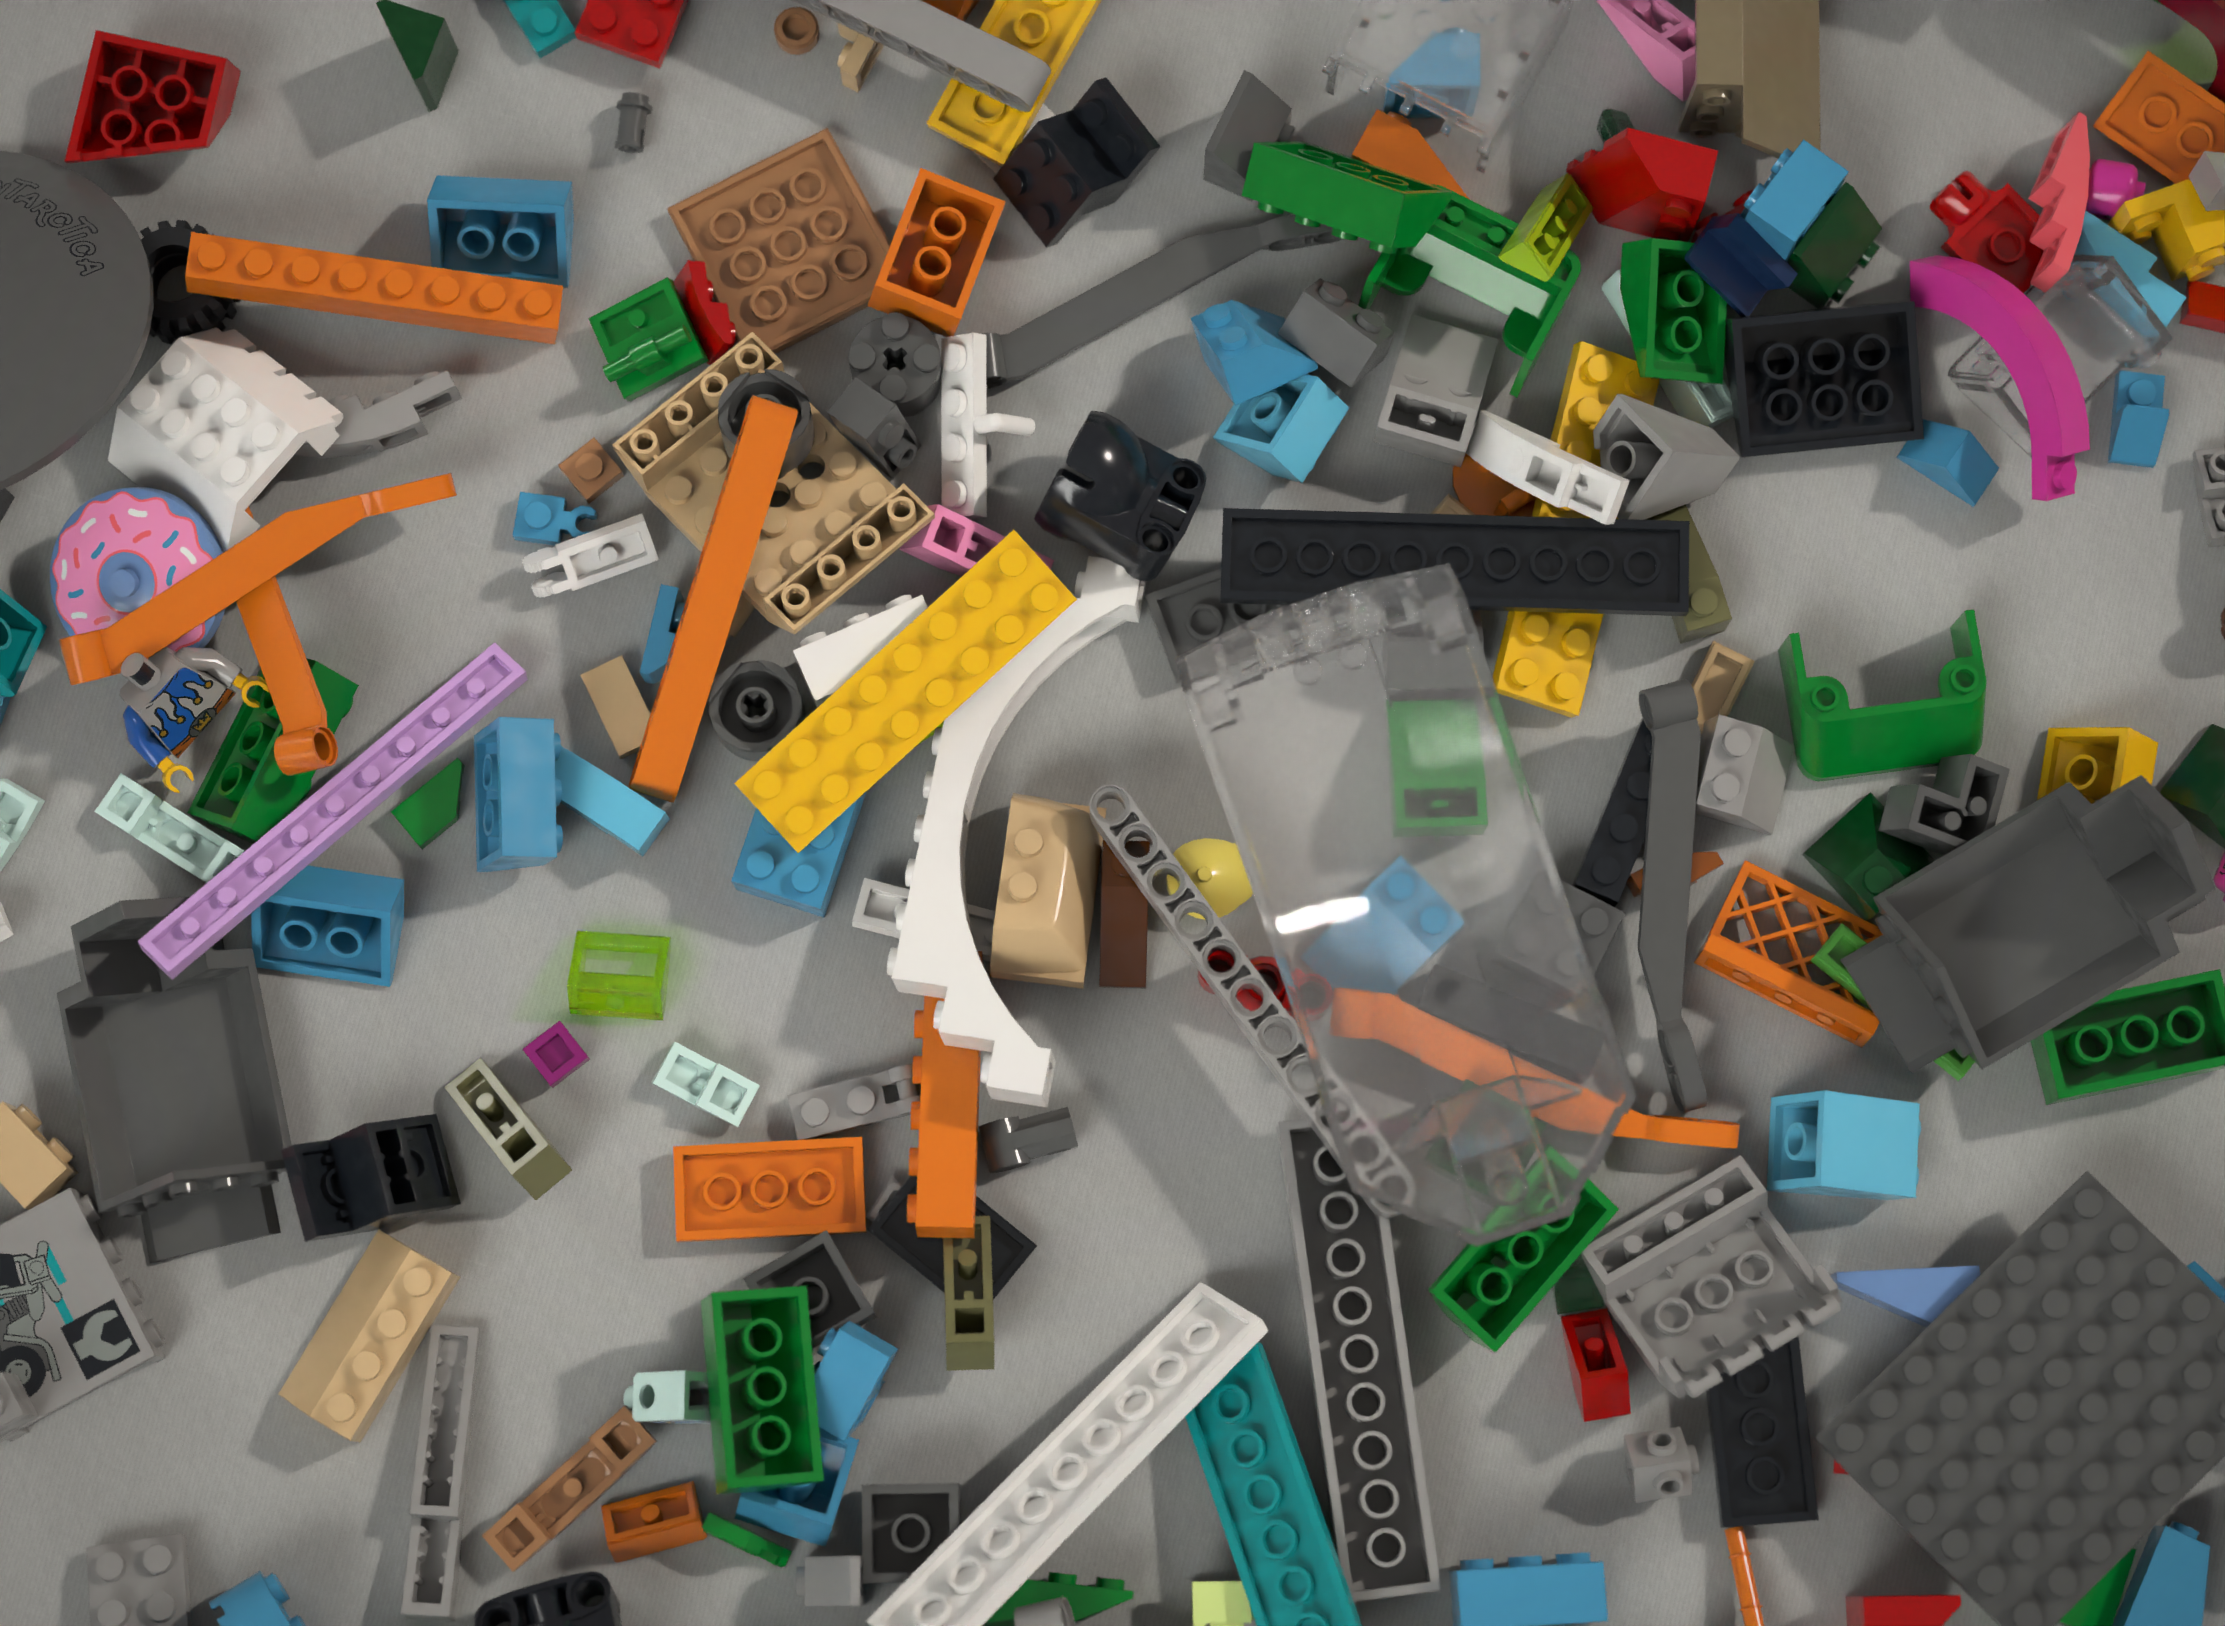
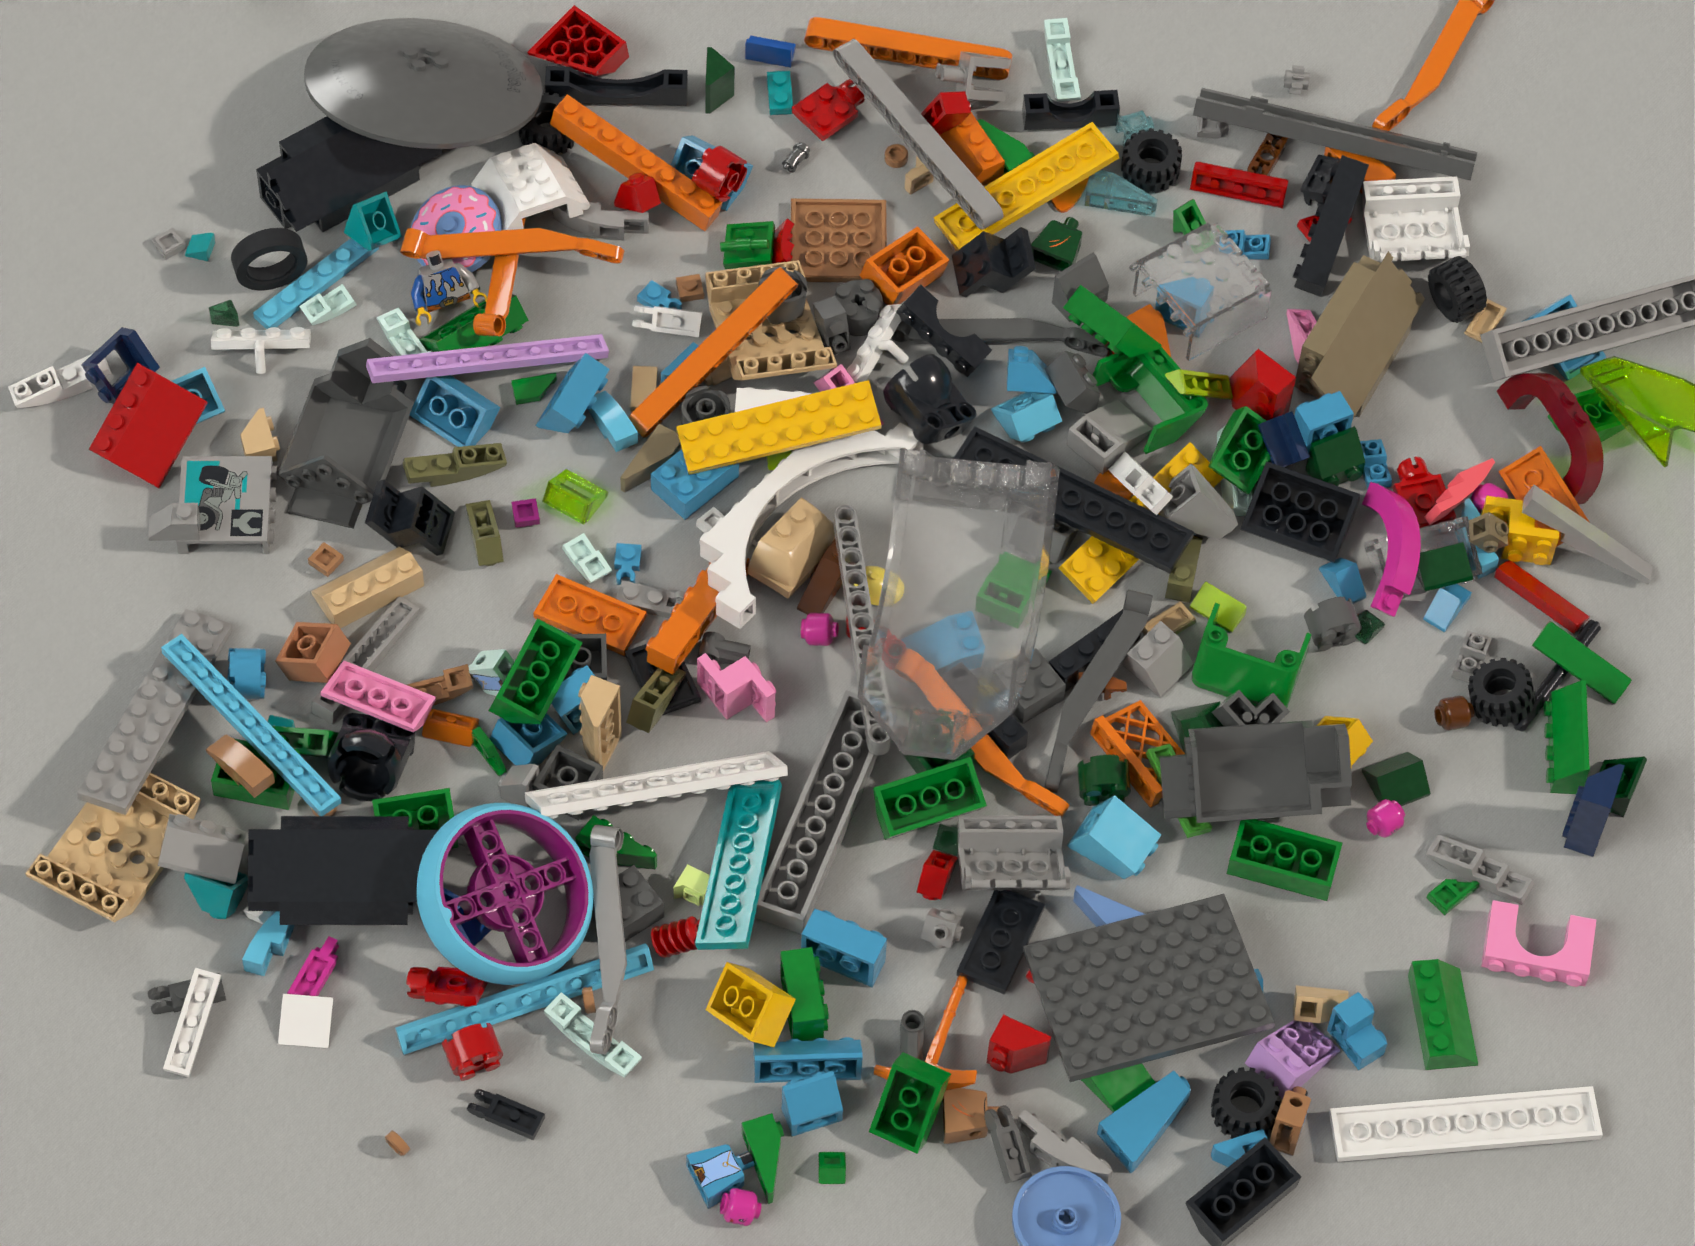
camera: 25 degrees right, 20 degrees down
(190, 180) = (662, 88): none -> black arch
(270, 1324) = (325, 559): none -> medium nougat plate
(353, 1526) = (312, 652): none -> nougat brick
(387, 1029) = (454, 467): none -> olive slope
(413, 348) = (637, 194): none -> red slope
(511, 1553) = (379, 696): none -> bright pink slope
(534, 241) = (720, 173): none -> red brick
(714, 830) = (656, 451): none -> dark tan slope
(773, 1047) = (627, 561): none -> dark azure plate
(914, 1417) = (600, 718): none -> tan slope
(1014, 332) = (921, 314): none -> black arch
(1093, 1205) = (736, 687): none -> bright pink bracket
(1162, 1015) = (819, 629): none -> dark pink head
(1163, 67) = (1058, 244): none -> dark green torso
(1771, 617) = (1230, 609): none -> lime slope
(1776, 1052) = (1103, 779): none -> dark green brick
(1902, 229) = (1375, 463): none -> dark azure slope
(1985, 559) = (1333, 623): none -> dark grey brick
(2028, 526) = (1370, 626): none -> clear green slope
(2114, 360) = (1444, 567): none -> dark green slope
(2160, 267) = (1488, 532): none -> dark tan brick

